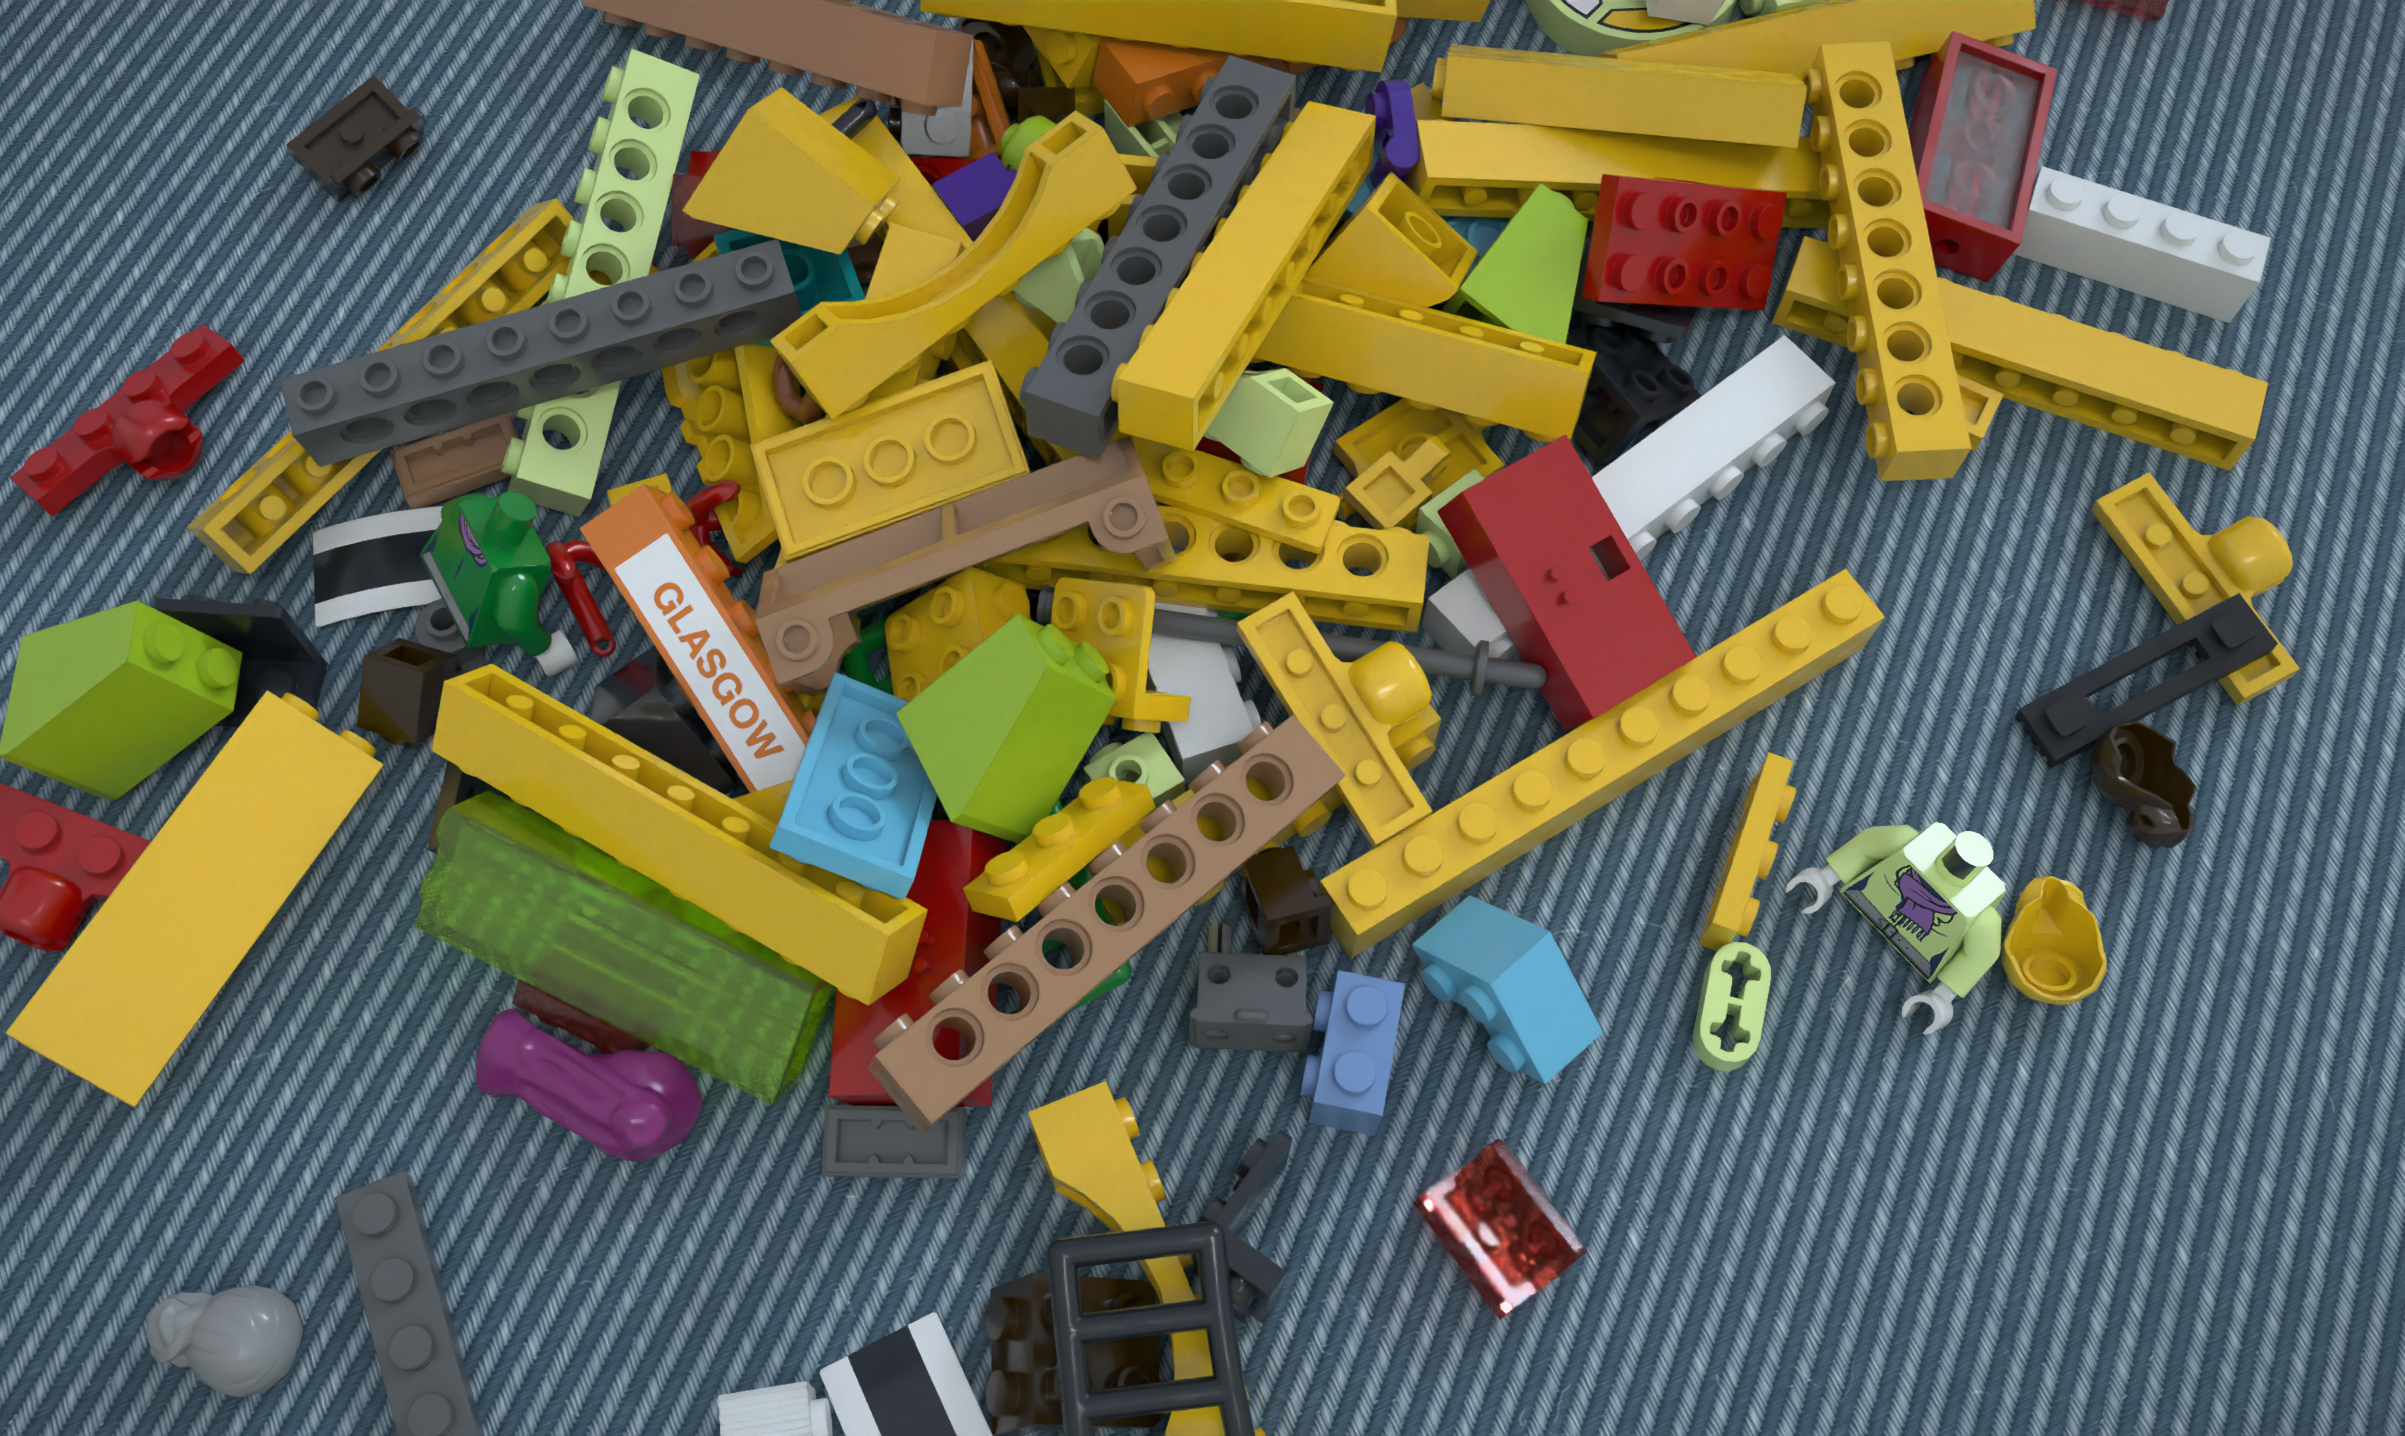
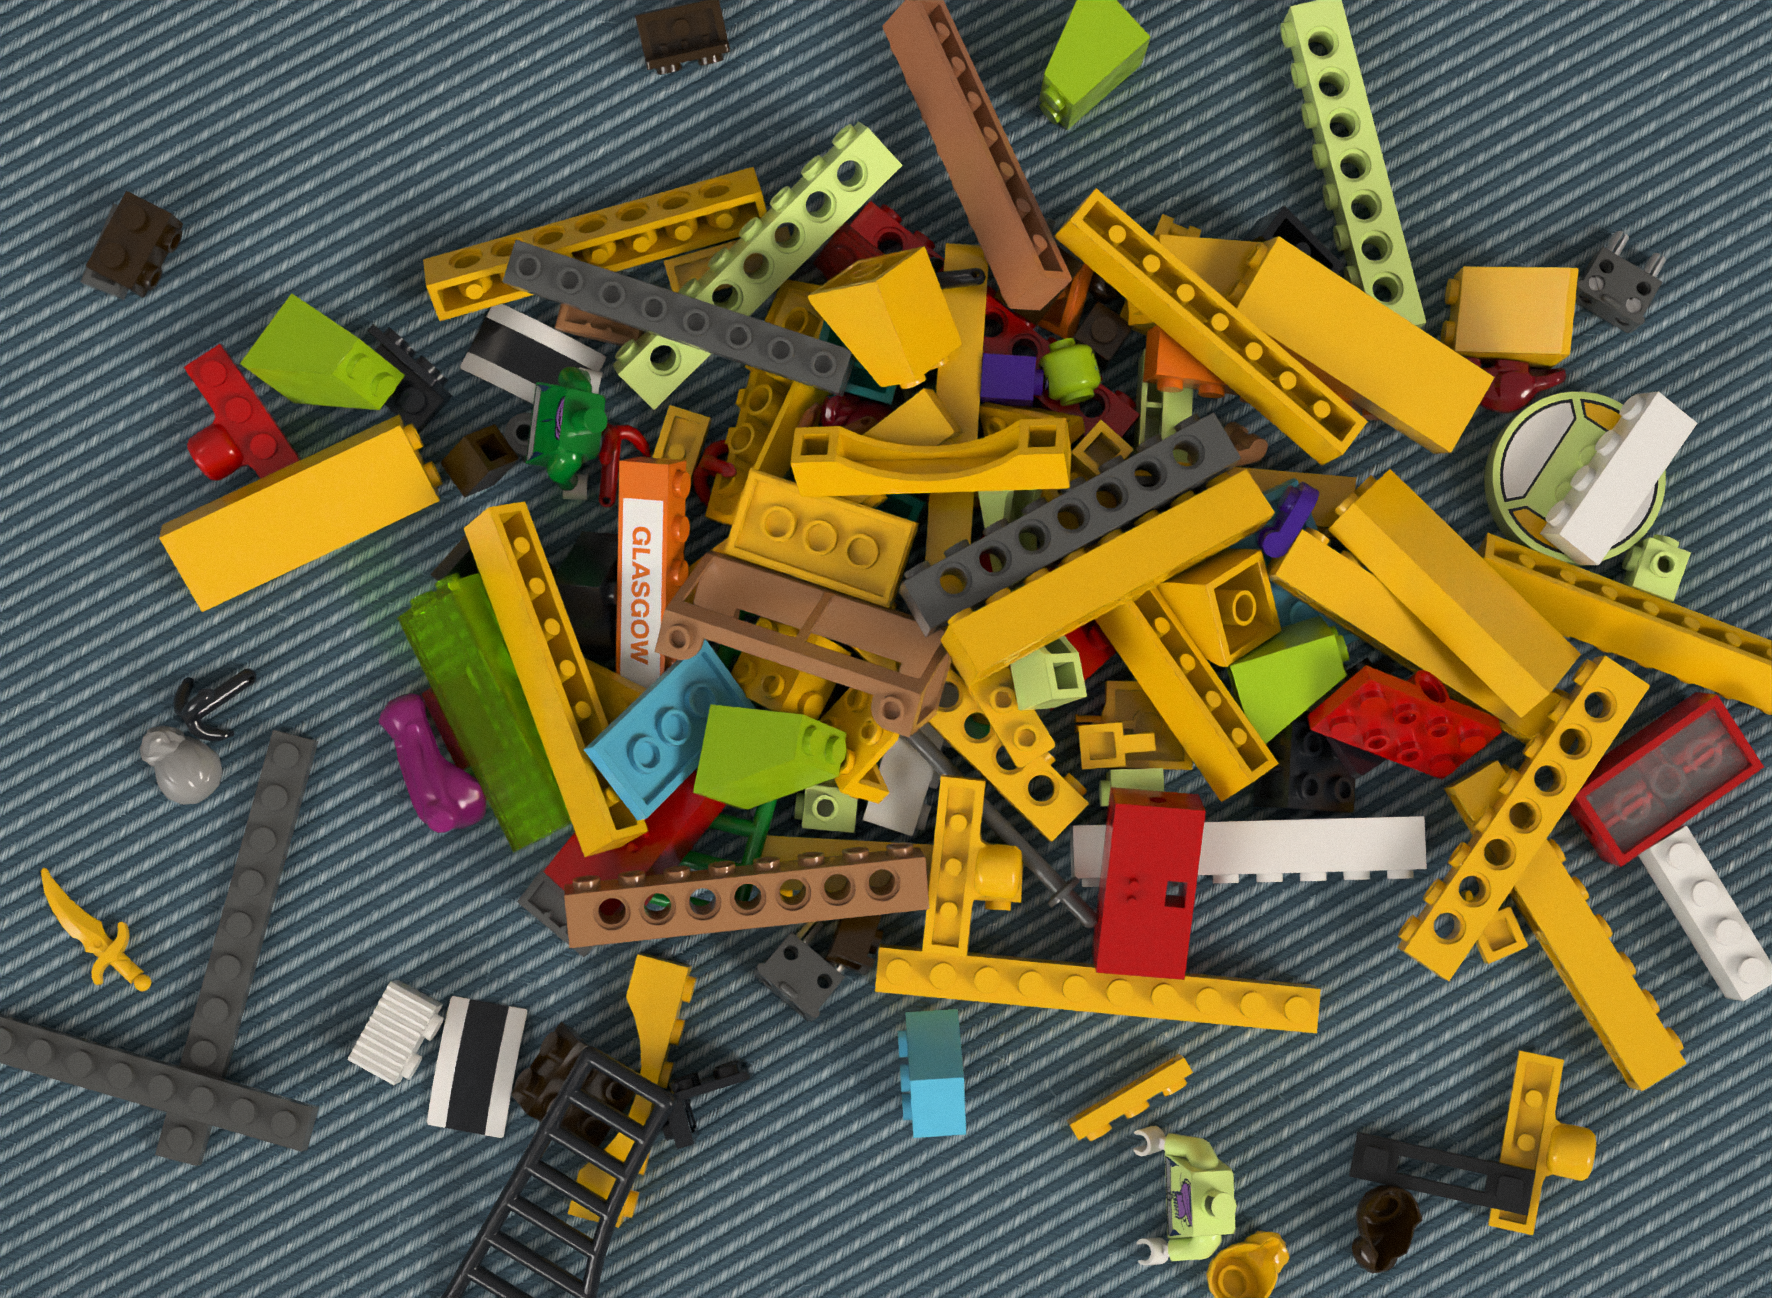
camera: 40 degrees right, 20 degrees up
(135, 426) = (436, 157): red plate -> none
(202, 1231) = (207, 701): none -> black piece
(1058, 848) = (749, 835): yellow plate -> none
(1356, 1052) = (829, 1047): medium blue brick -> none
(1500, 1228) = (831, 1189): clear red bracket -> none
(1746, 1009) = (1059, 1176): yellowish green beam -> none

